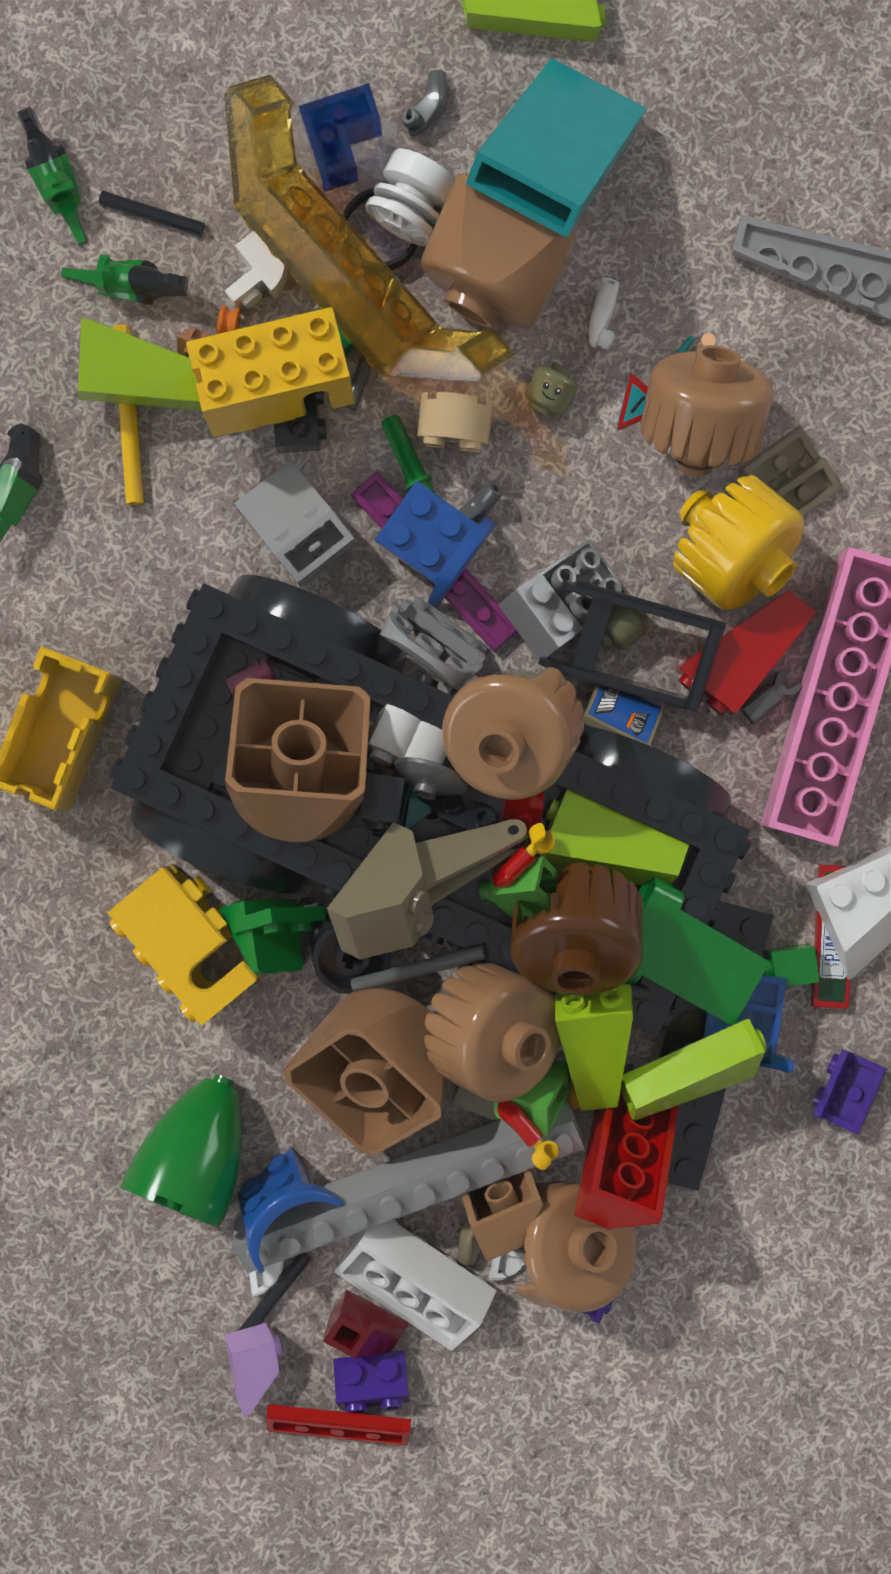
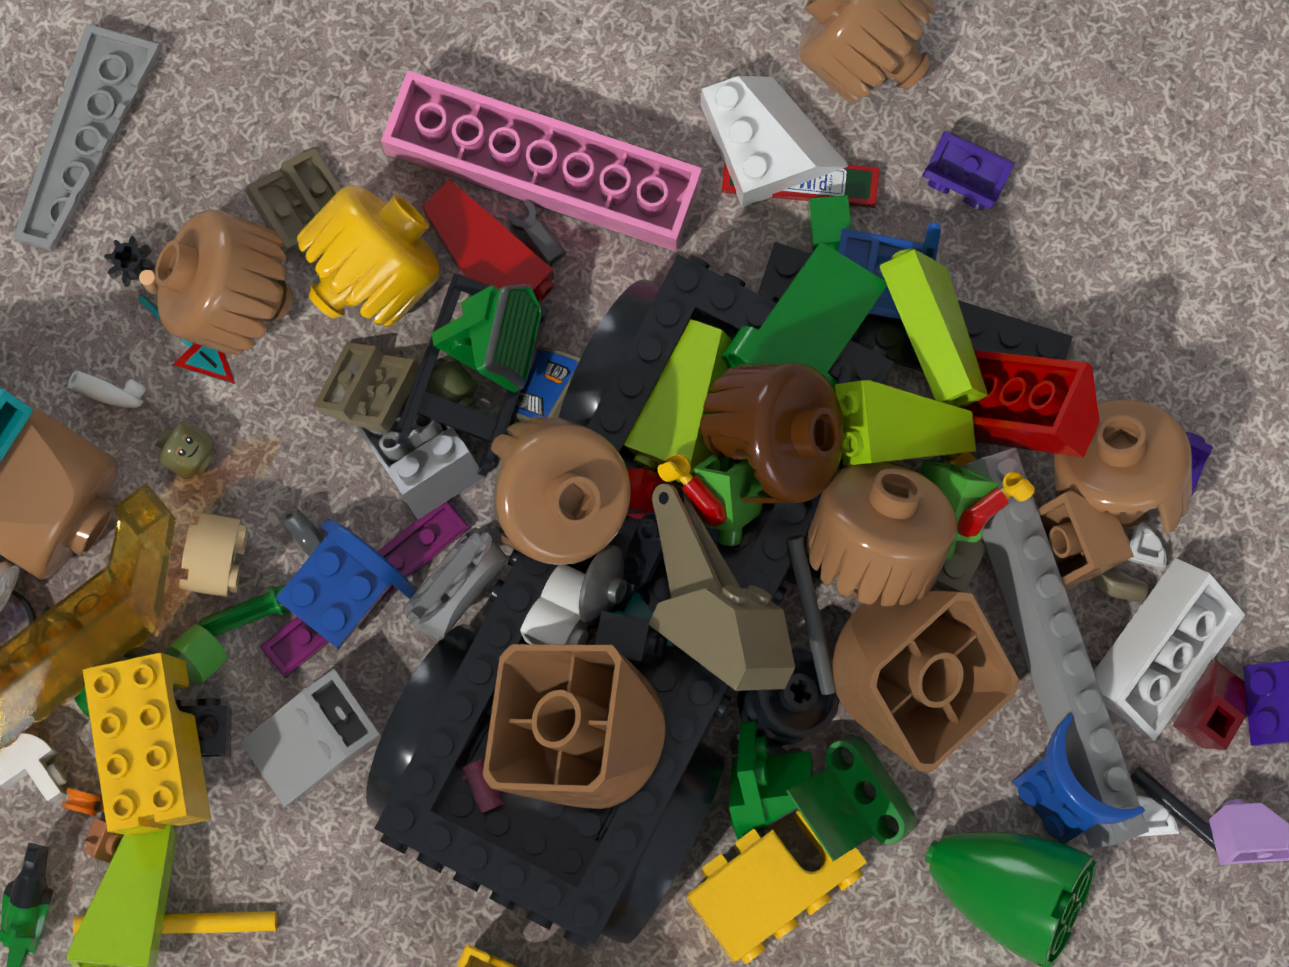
camera: 90 degrees left, 10 degrees down
(248, 1002) = (840, 808): none -> green piece
(365, 415) = (200, 651): none -> bright green piece
(617, 551) = (367, 387): none -> dark tan slope
(667, 664) = (495, 334): none -> green piece
(733, 319) = (123, 253): none -> black gear

